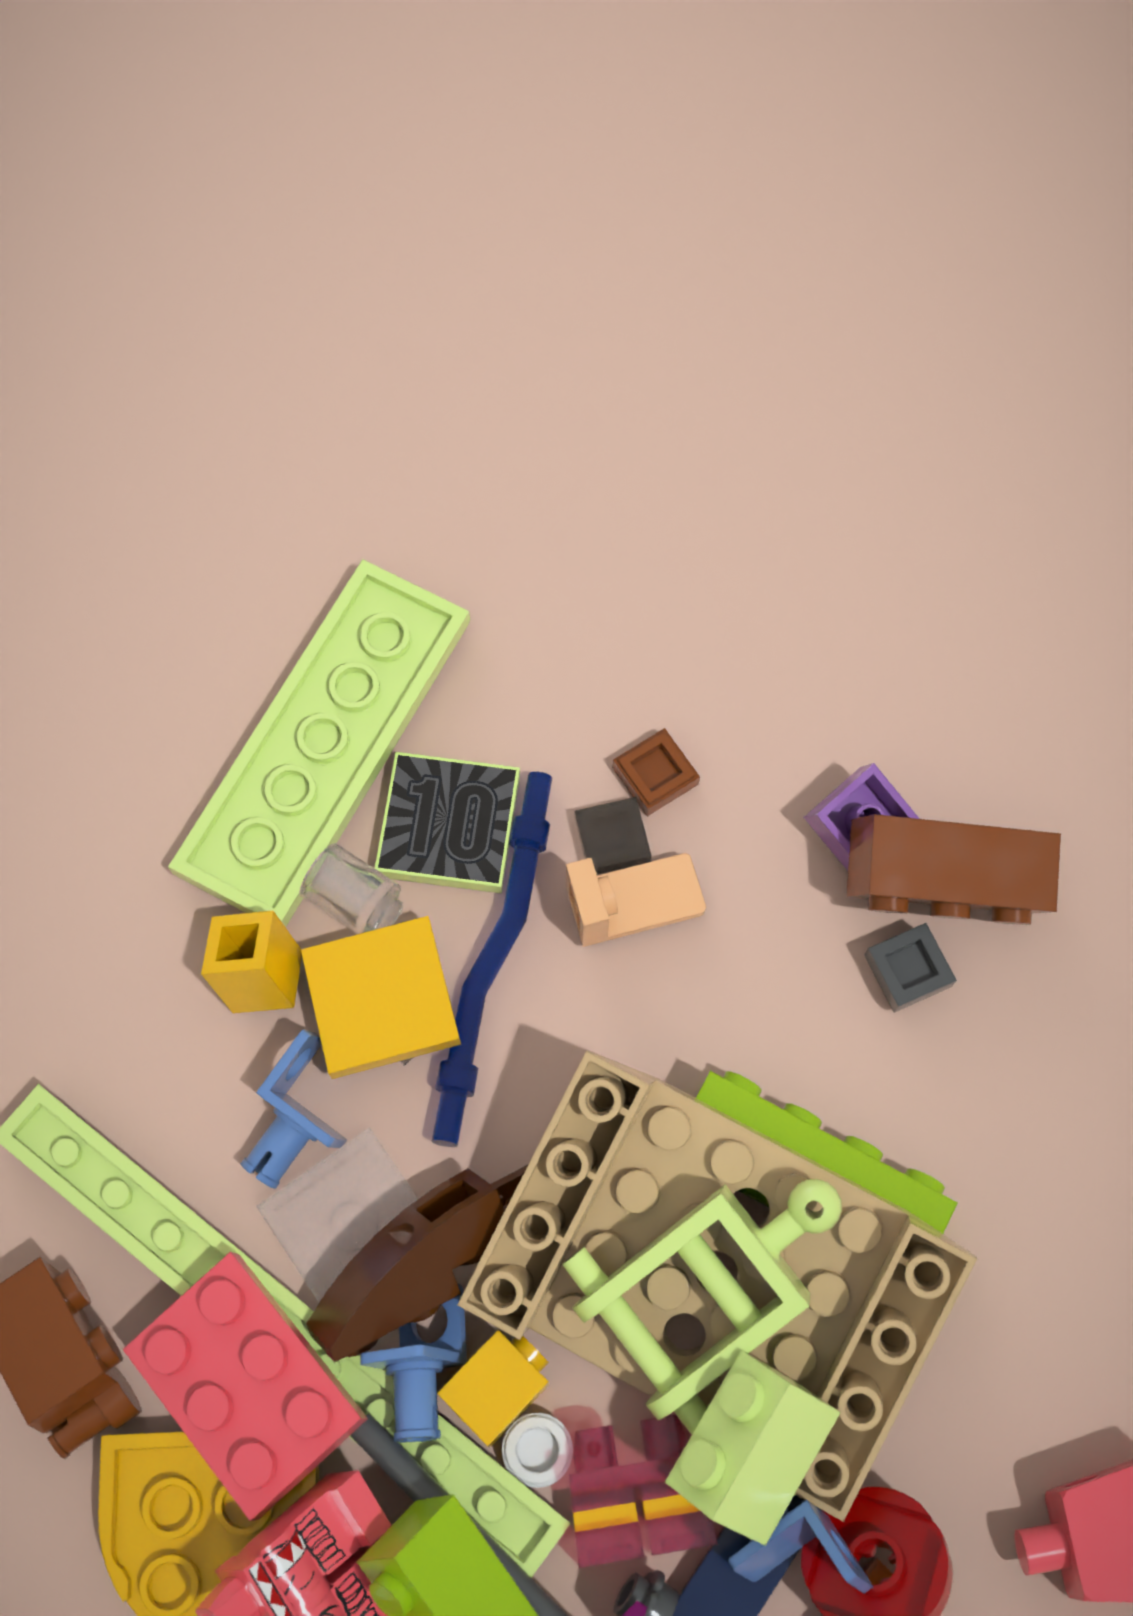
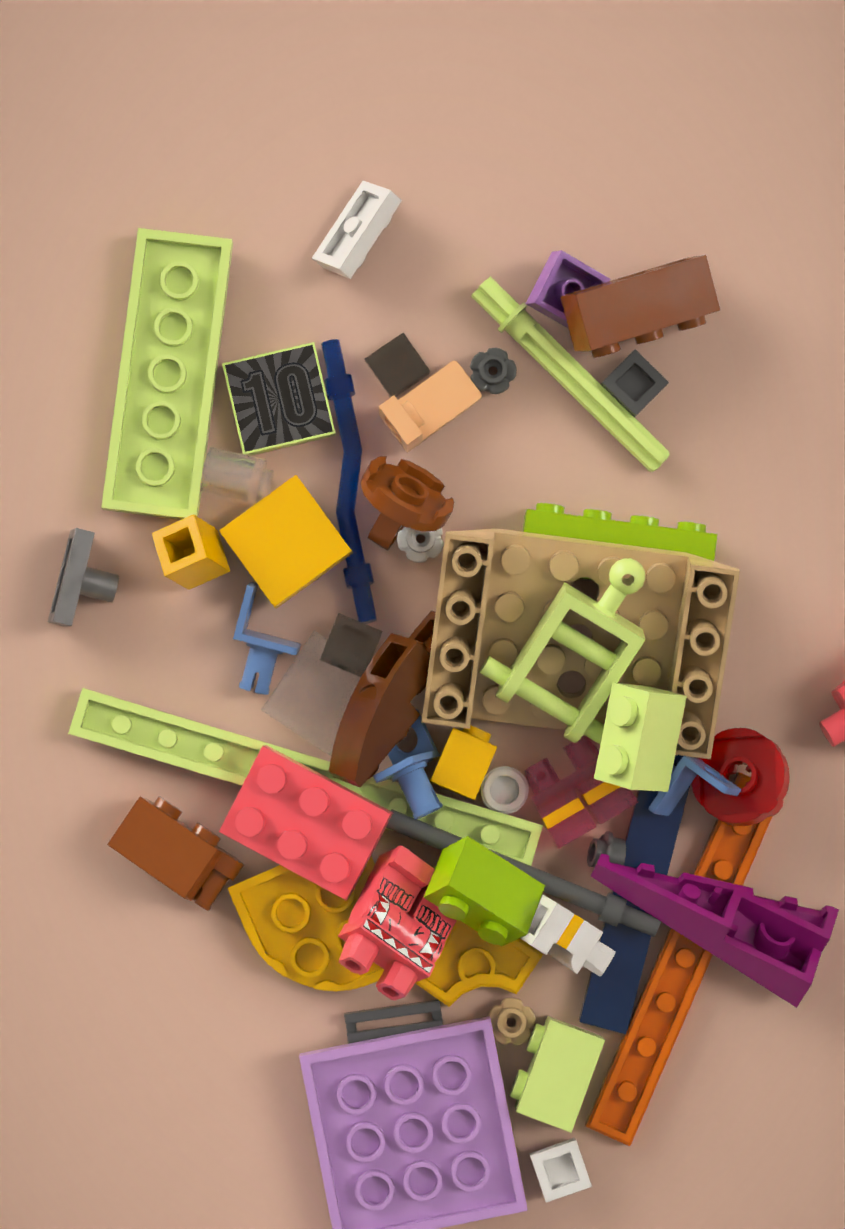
camera: 25 degrees left, 15 degrees up
(100, 945) = (79, 579): none -> flat silver tile
(408, 1163) = (350, 645): none -> clear smoke tile
(539, 1054) = (417, 551): none -> white plate
(552, 999) = (405, 498): none -> dark orange tile
(625, 655) = (357, 229): none -> white plate
(656, 772) = (409, 307): dark orange tile -> none
(729, 901) = (492, 358): none -> dark grey plate
(832, 929) = (570, 374): none -> yellowish green axle

